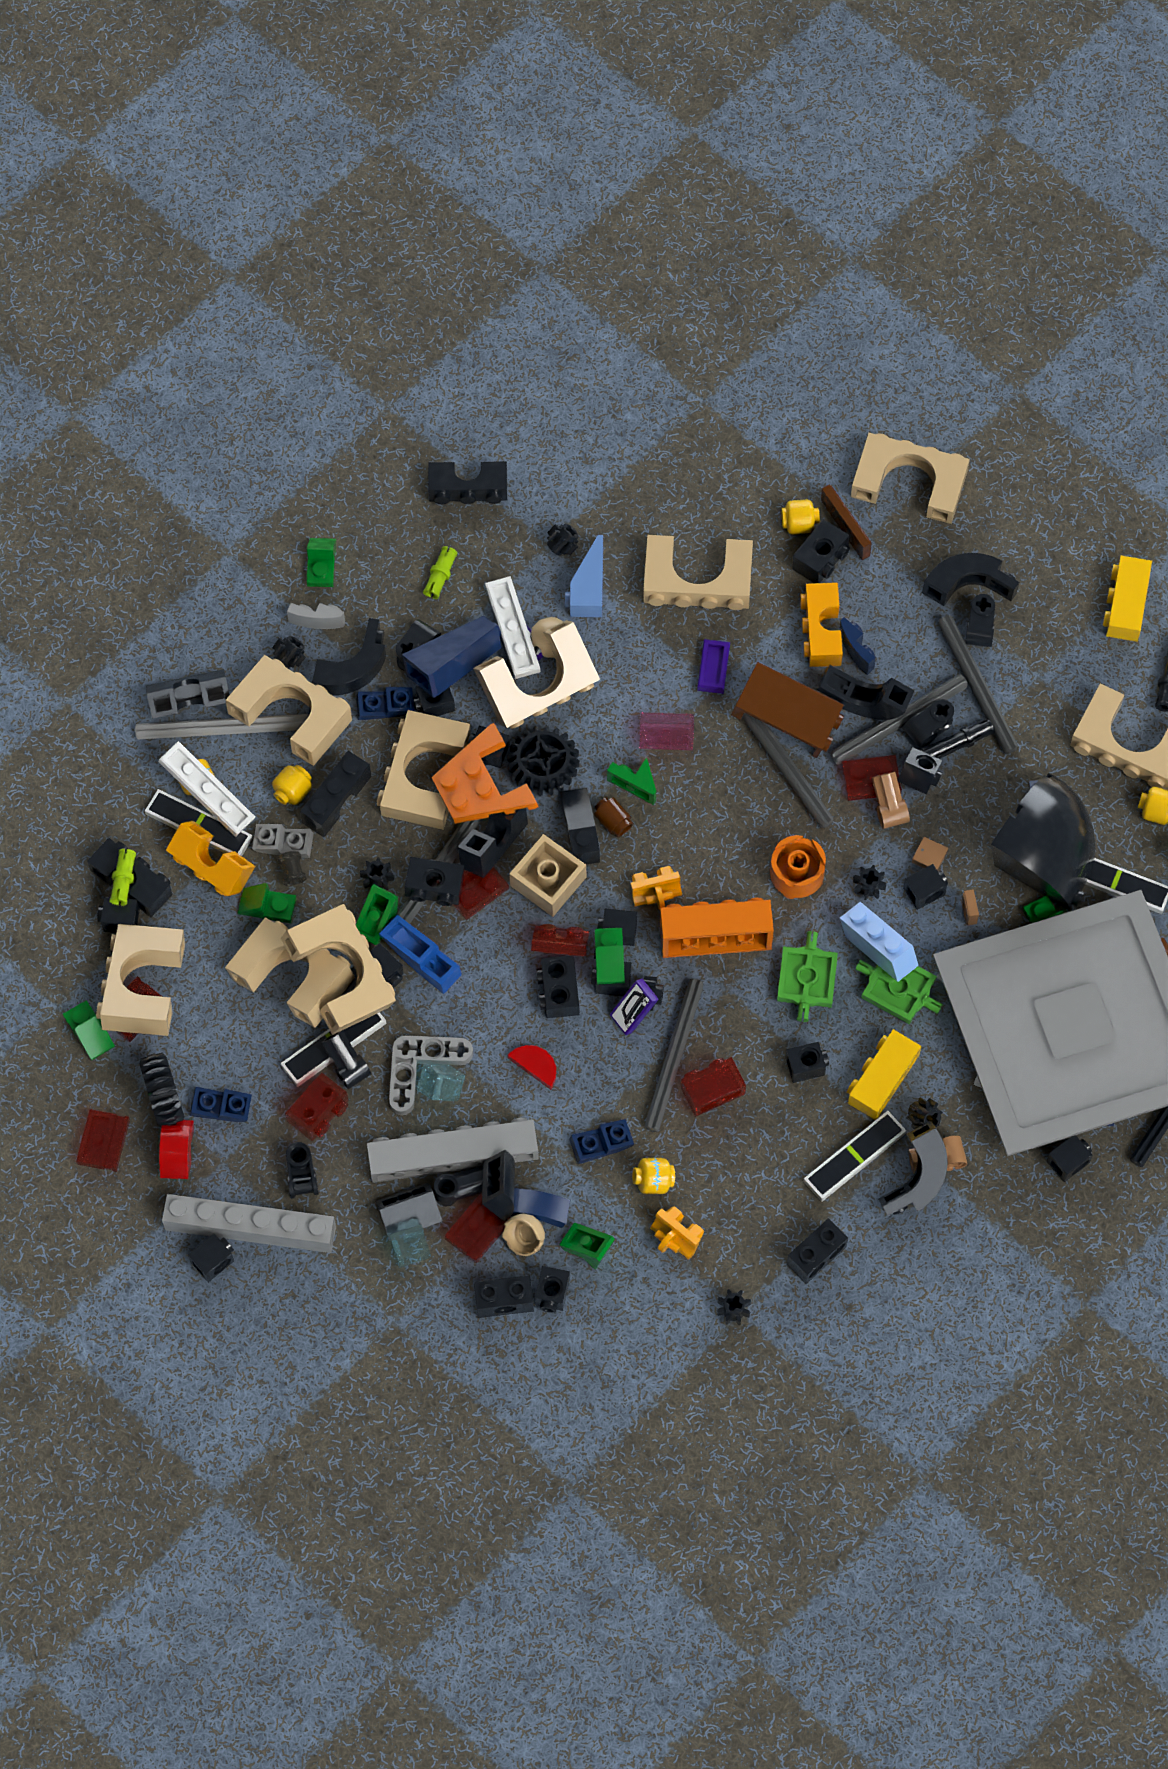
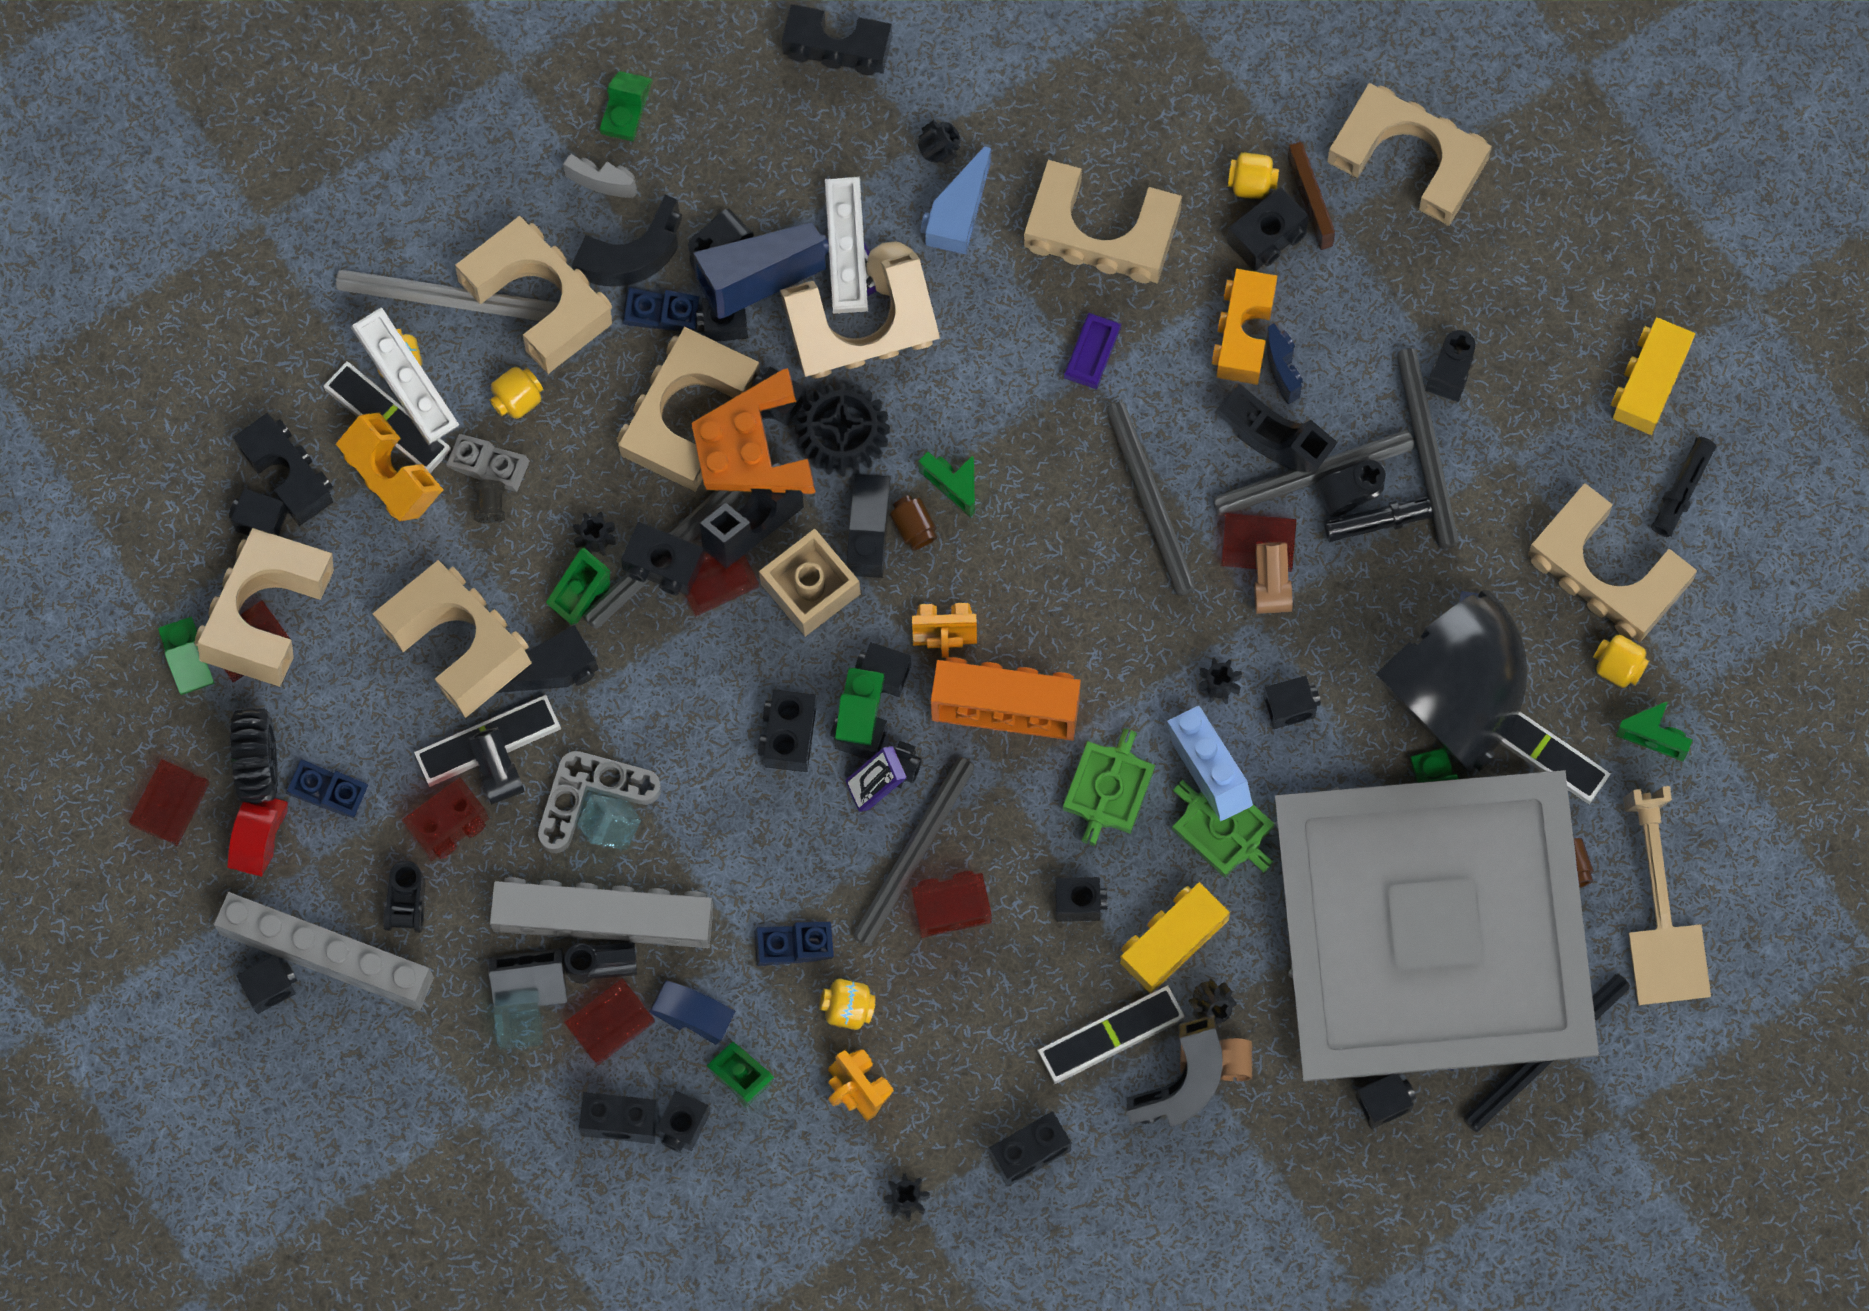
camera: 15 degrees right, 5 degrees up
(122, 877) = (271, 469): lime pin -> none
(171, 695) = (388, 243): black arch -> none
(262, 903) = (445, 540): green slope -> none
(289, 651) = (554, 217): black gear -> none
(325, 804) = (550, 428): black arch -> none
(338, 931) = (518, 600): tan arch -> none
(421, 954) = (624, 649): blue slope -> none
(440, 572) = (773, 152): lime pin -> none
(499, 1184) = (647, 973): black brick -> none
(524, 1234) = (664, 1043): tan hair -> none
(536, 1063) = (736, 822): red tile -> none
(560, 940) = (804, 671): clear red plate -> none
(666, 731) = (1009, 424): clear pink panel -> none
(789, 707) = (1173, 429): reddish brown panel -> none
(810, 869) = (1145, 627): orange brick -> none
(920, 771) = (1322, 548): black brick -> none
(929, 853) = (1308, 660): medium nougat tile -> none
(968, 570) = (1454, 293): black arch -> none
(969, 907) = (1340, 742): medium nougat tile -> none

